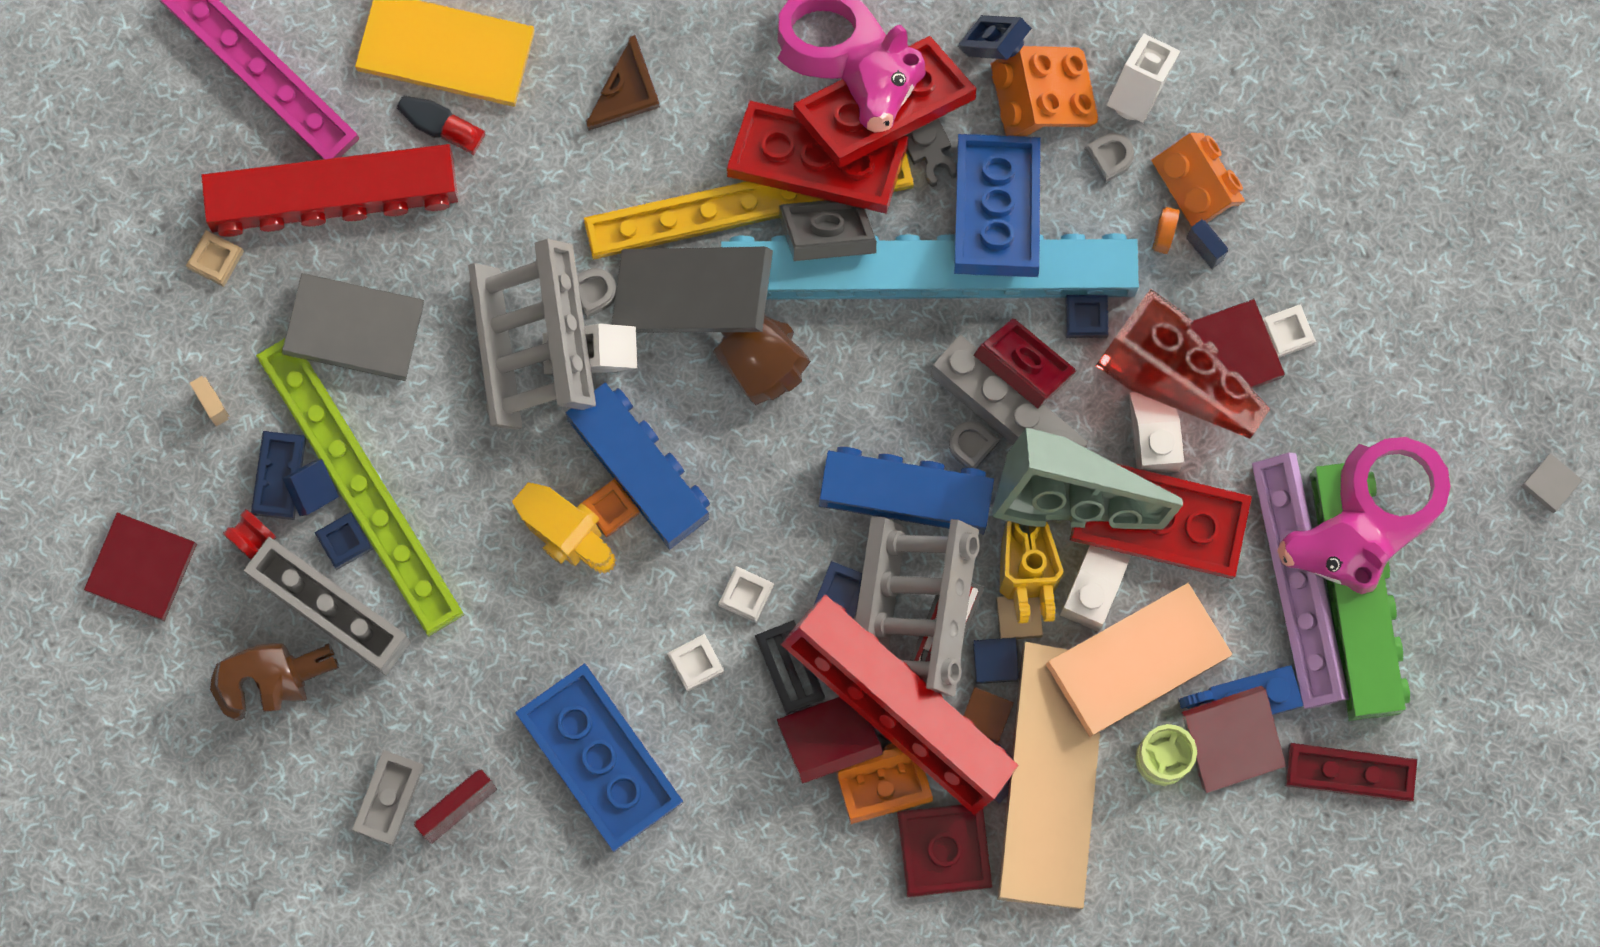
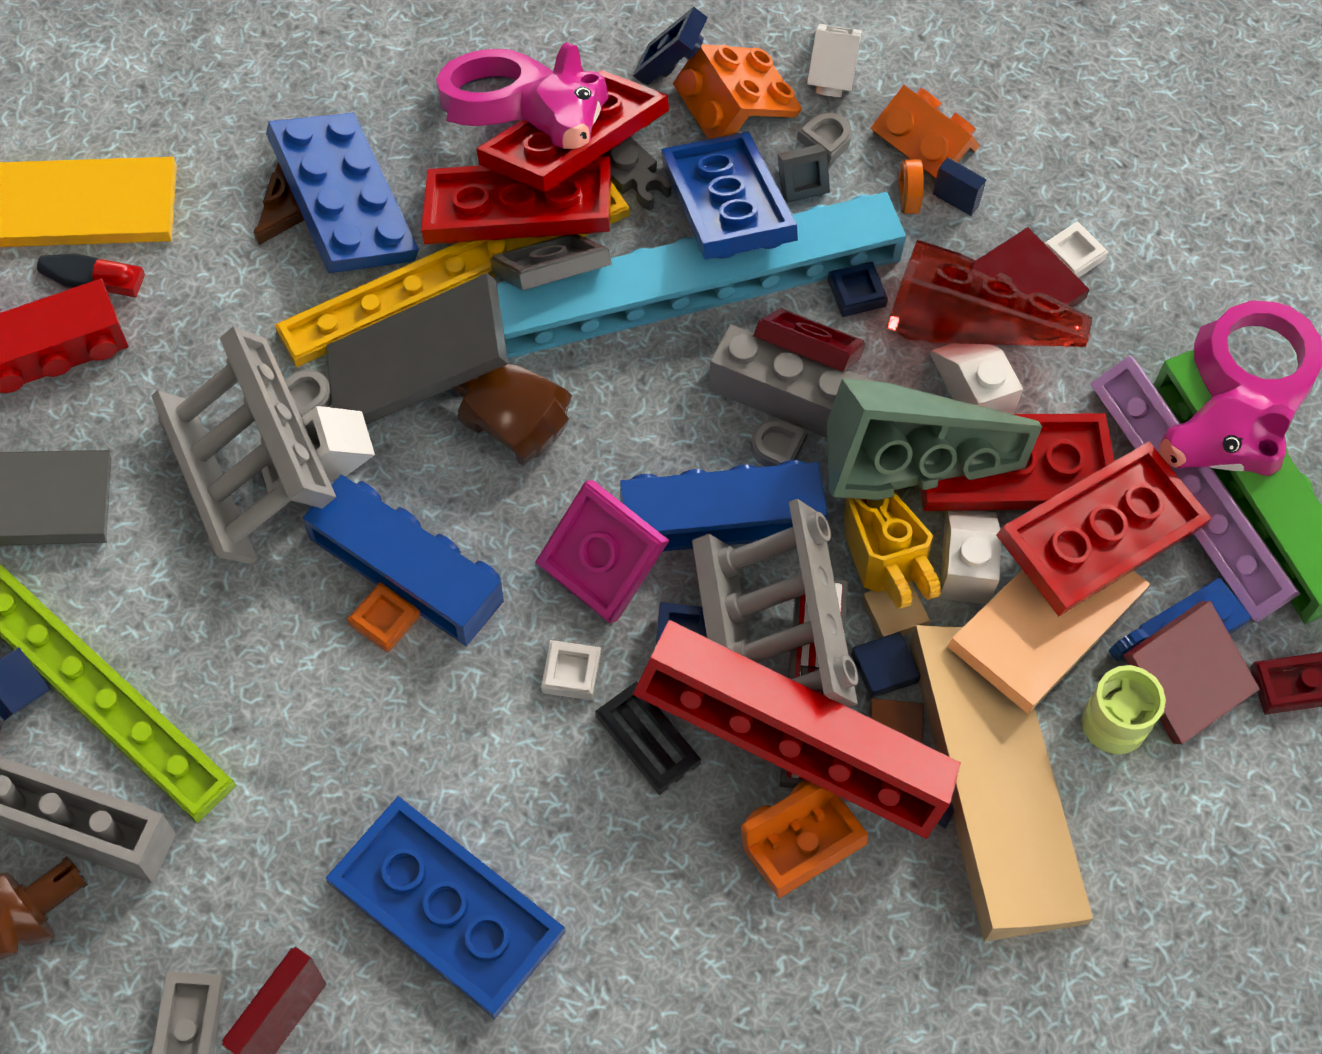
camera: 15 degrees left, 15 degrees down
(343, 541) = (66, 738): dark blue tile -> none
(565, 529) = (333, 648): yellow hinge -> none
(669, 103) = (341, 192): none -> plate
(695, 662) = (533, 763): white tile -> none
(796, 505) = (601, 551): none -> dark pink tile
(828, 739) = (722, 799): dark red tile -> none
(944, 850) = (901, 899): dark red tile -> none
(1075, 192) = (803, 173): none -> dark grey tile
(1206, 602) = (1103, 528): none -> red plate

